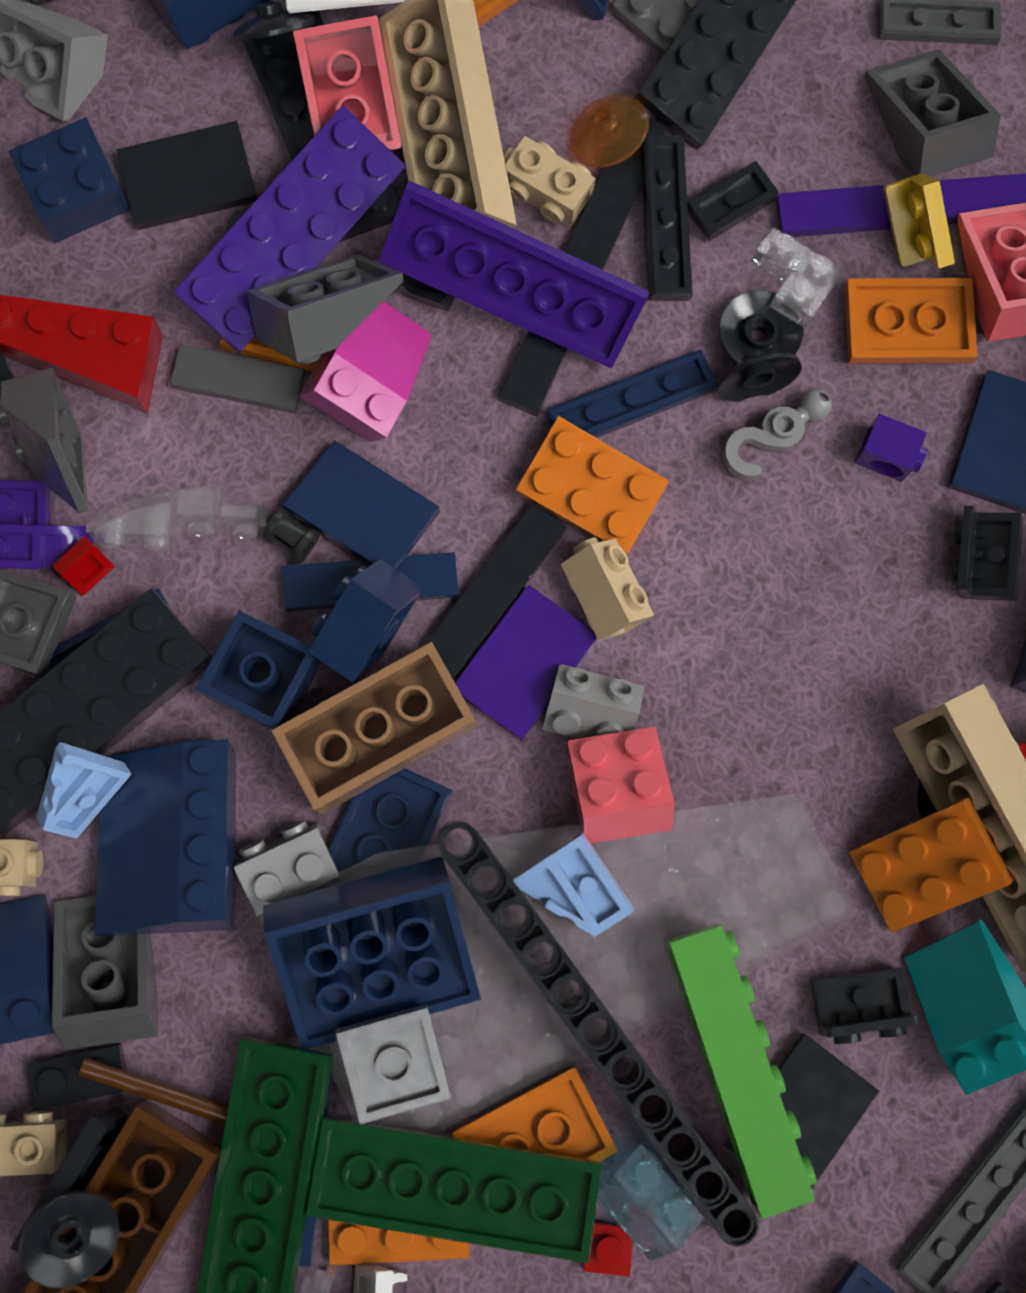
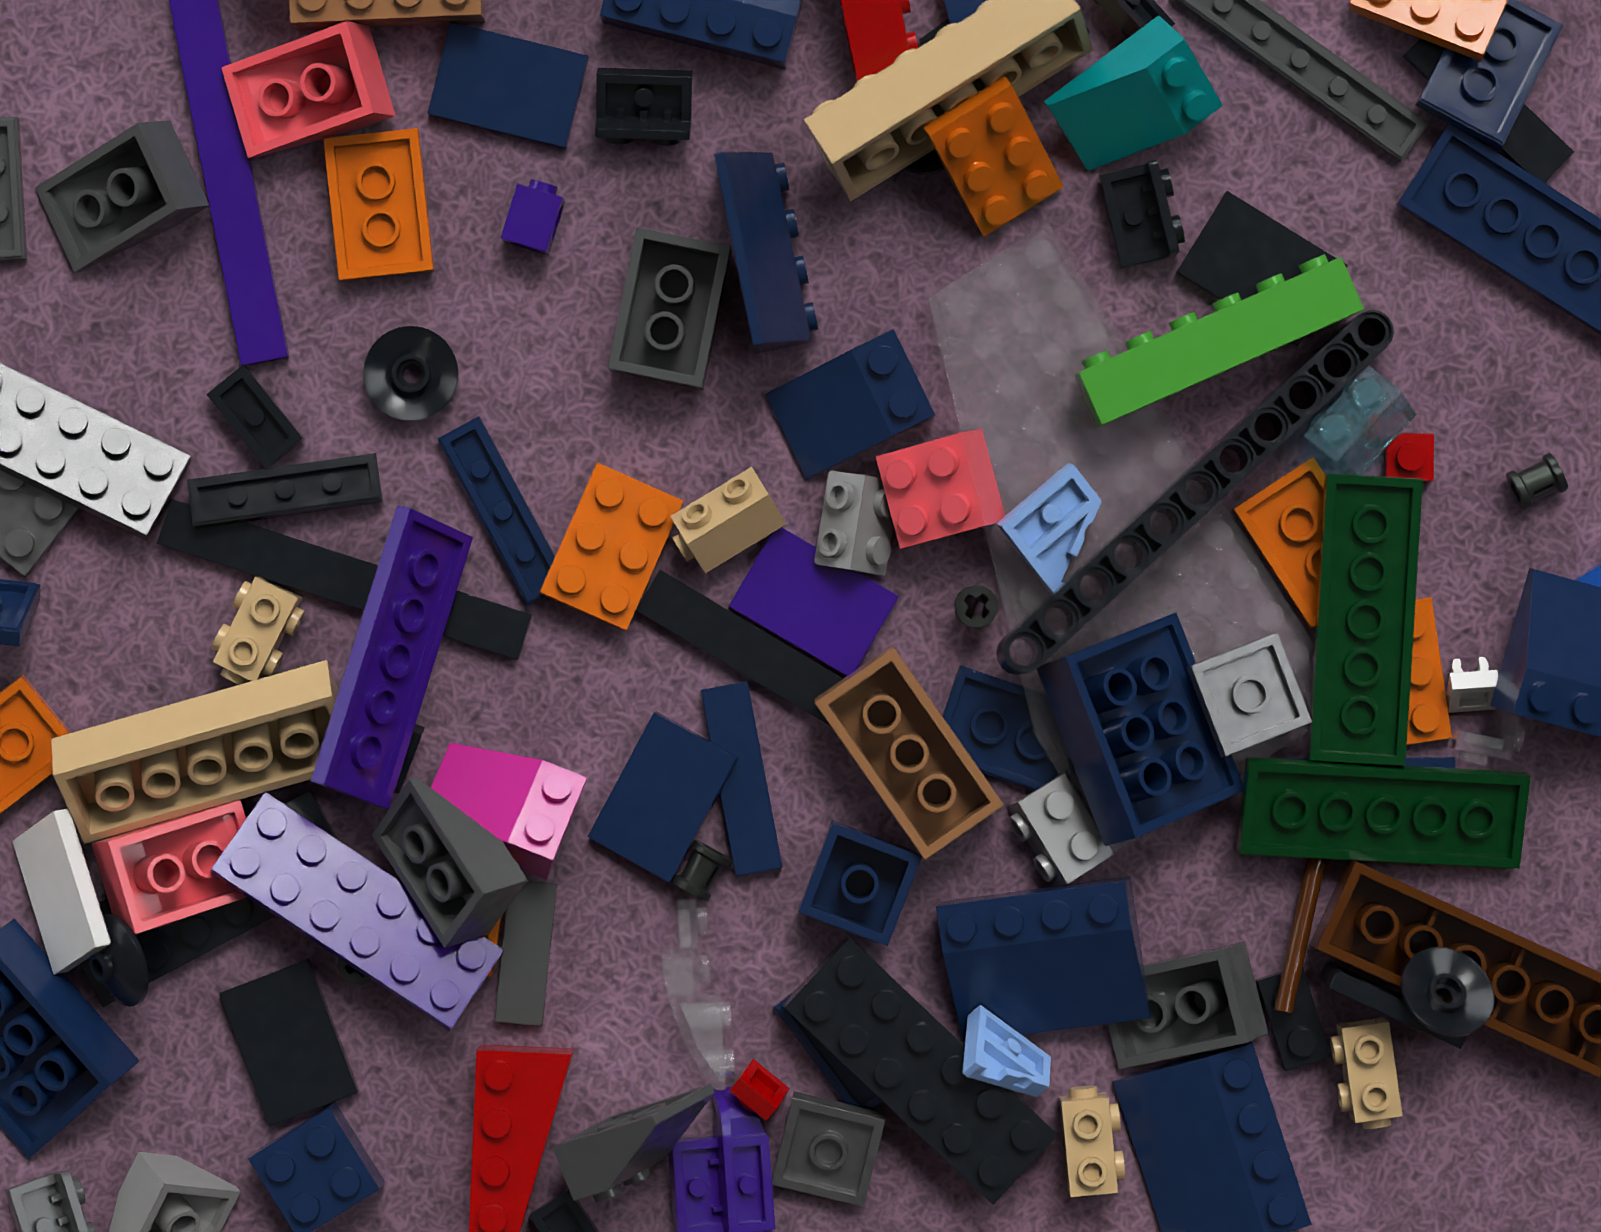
camera: 90 degrees left, 10 degrees up
(364, 618) = (792, 778): dark blue brick -> none
(506, 795) = (990, 605): none -> pearl dark grey bush
(609, 130) = (194, 550): clear orange dish -> none
(704, 714) = (850, 404): none -> dark blue slope
(759, 375) = (466, 374): black dish -> none
(778, 432) = (523, 344): light grey piece -> none
(805, 275) = (335, 326): clear plate -> none
(805, 556) = (669, 308): none -> dark grey brick
(856, 640) = (764, 250): none -> dark blue slope
(919, 221) = (267, 207): yellow bracket -> none

